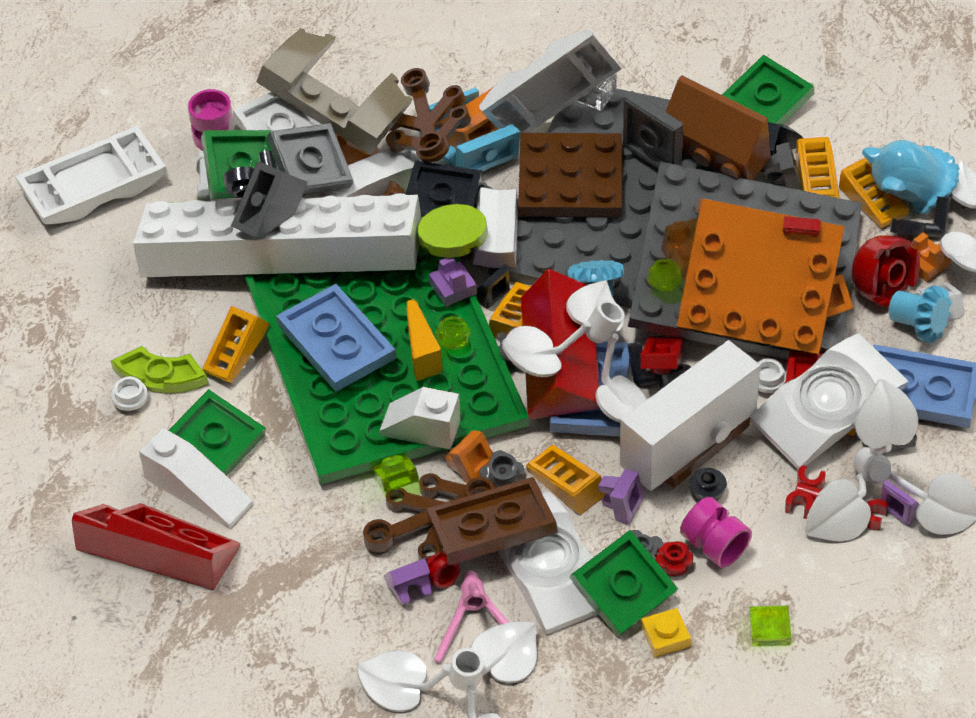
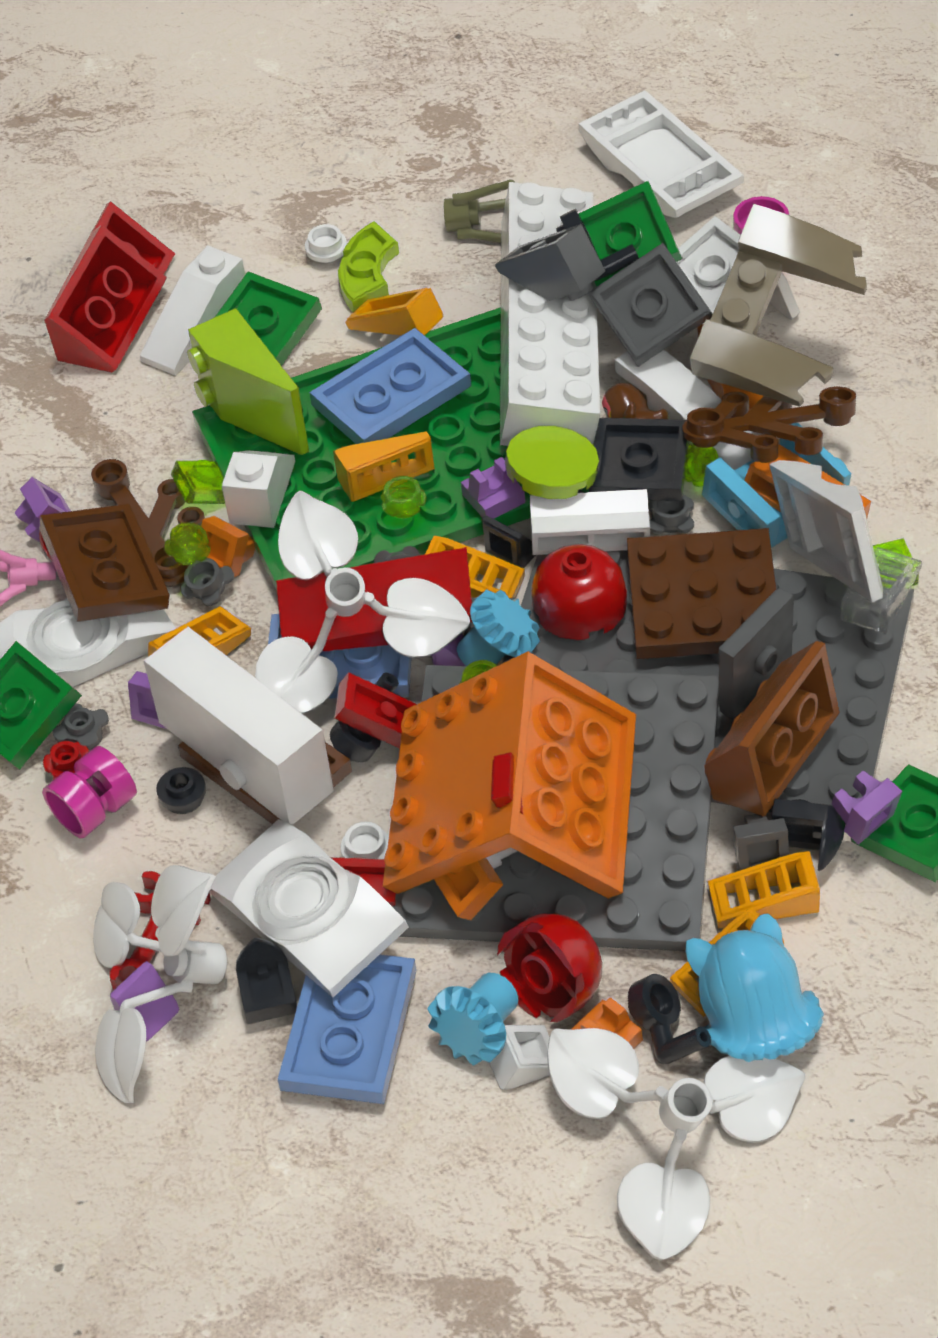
camera: 90 degrees right, 0 degrees up
(121, 300) = (465, 211): none -> olive plant
(329, 409) = (246, 381): none -> lime slope
(479, 467) = (187, 543): none -> clear neon green plate
(565, 235) = (578, 592): none -> red cylinder
(771, 102) = (871, 810): none -> medium lavender tile

